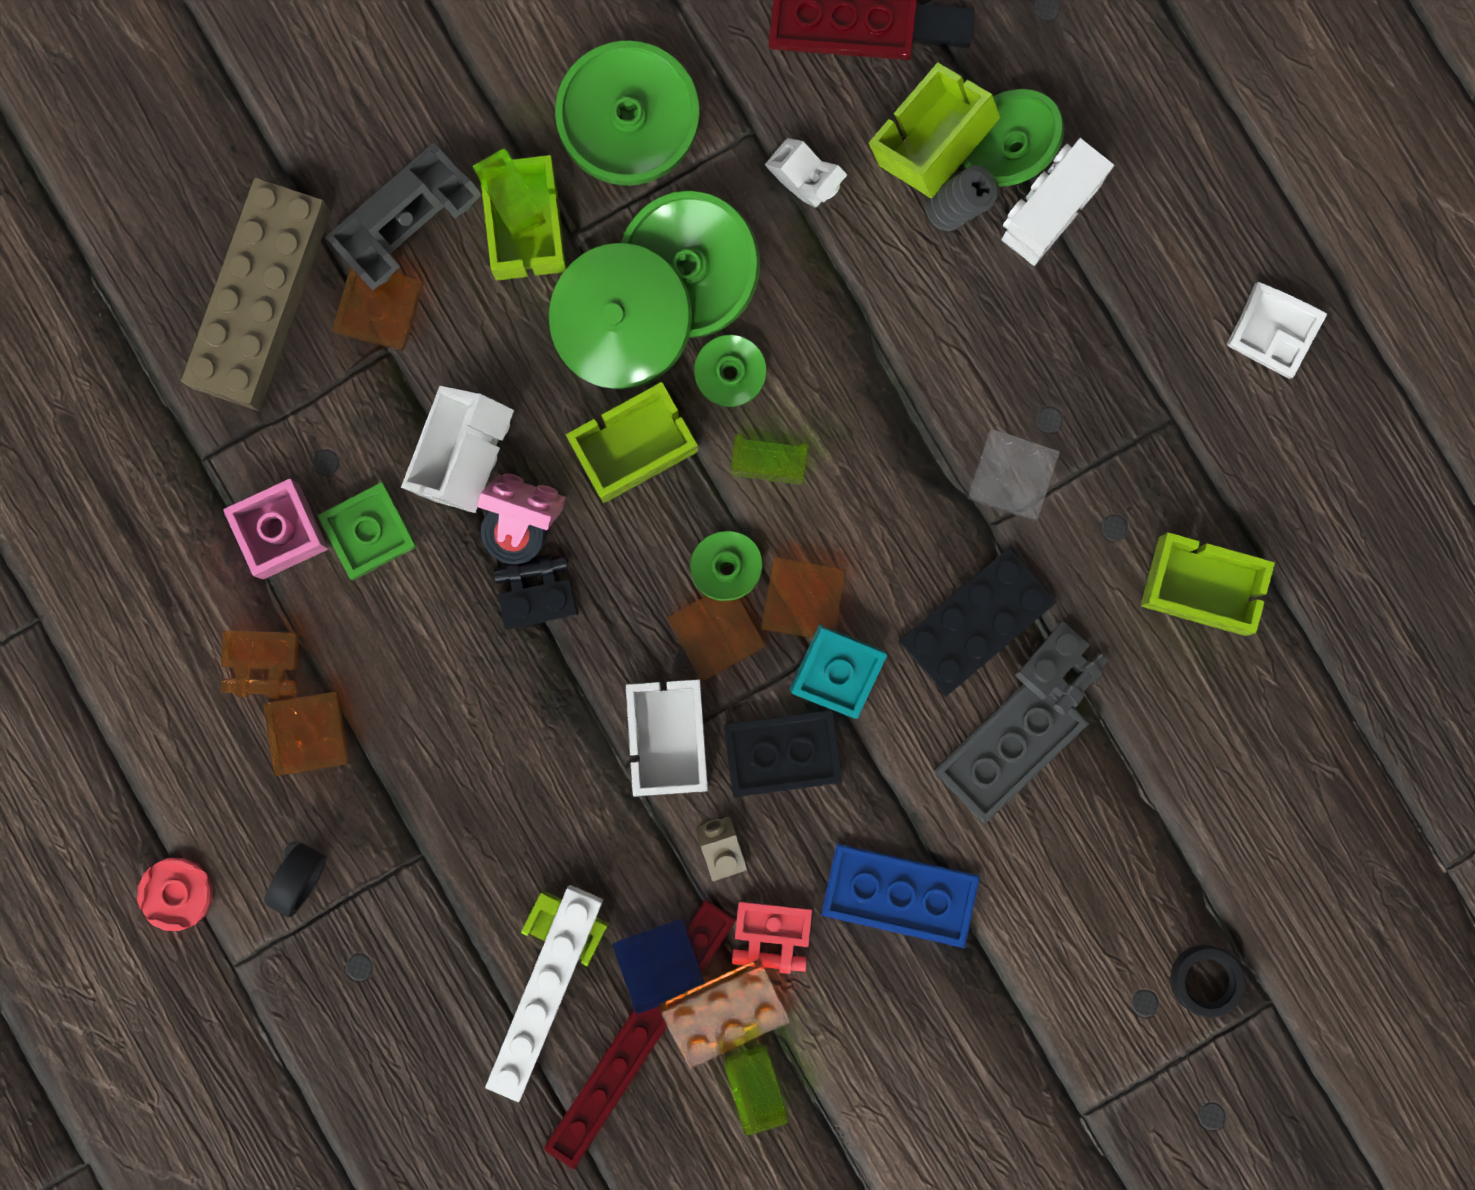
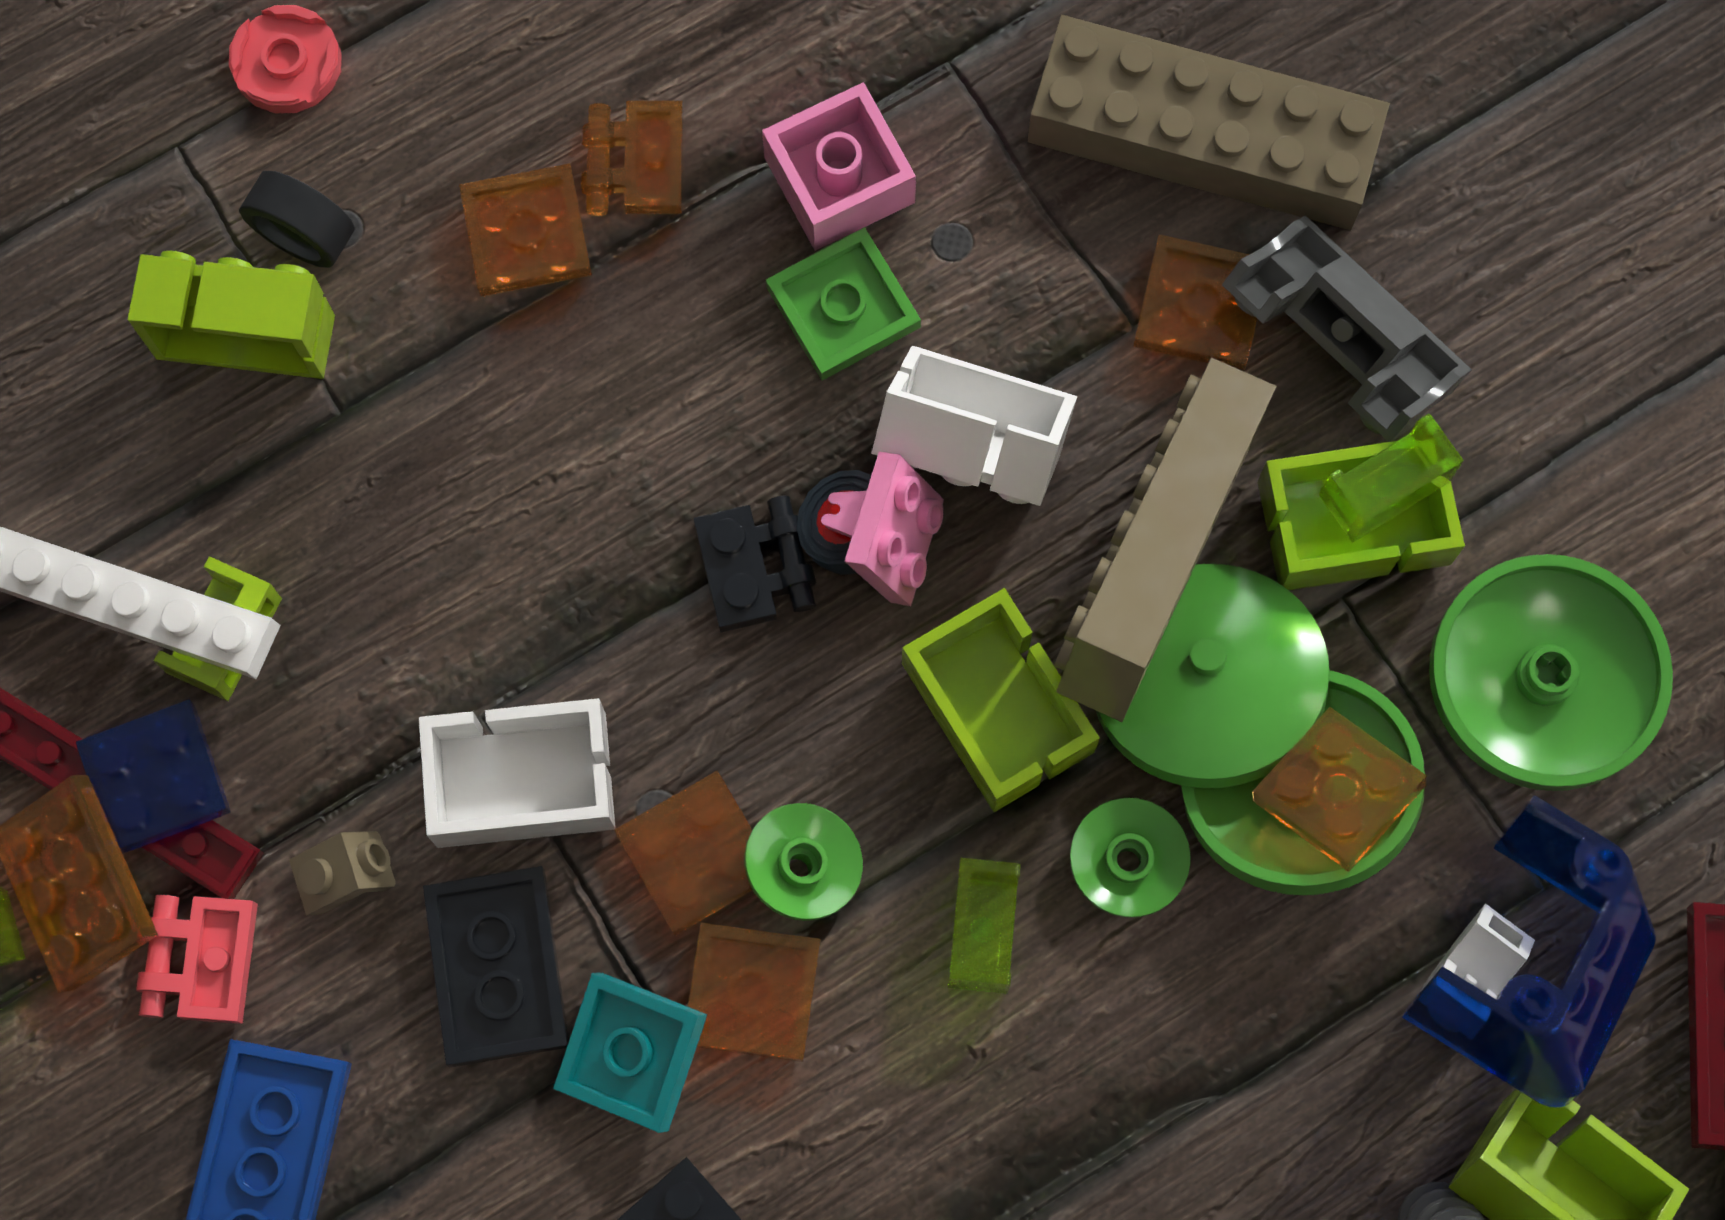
camera: 90 degrees right, 10 degrees down
(359, 921) = (232, 314): none -> lime piece
(539, 333) = (1160, 538): none -> dark tan brick
(698, 241) = (1339, 789): none -> clear orange plate
(849, 128) = (1534, 1032): none -> clear blue windscreen

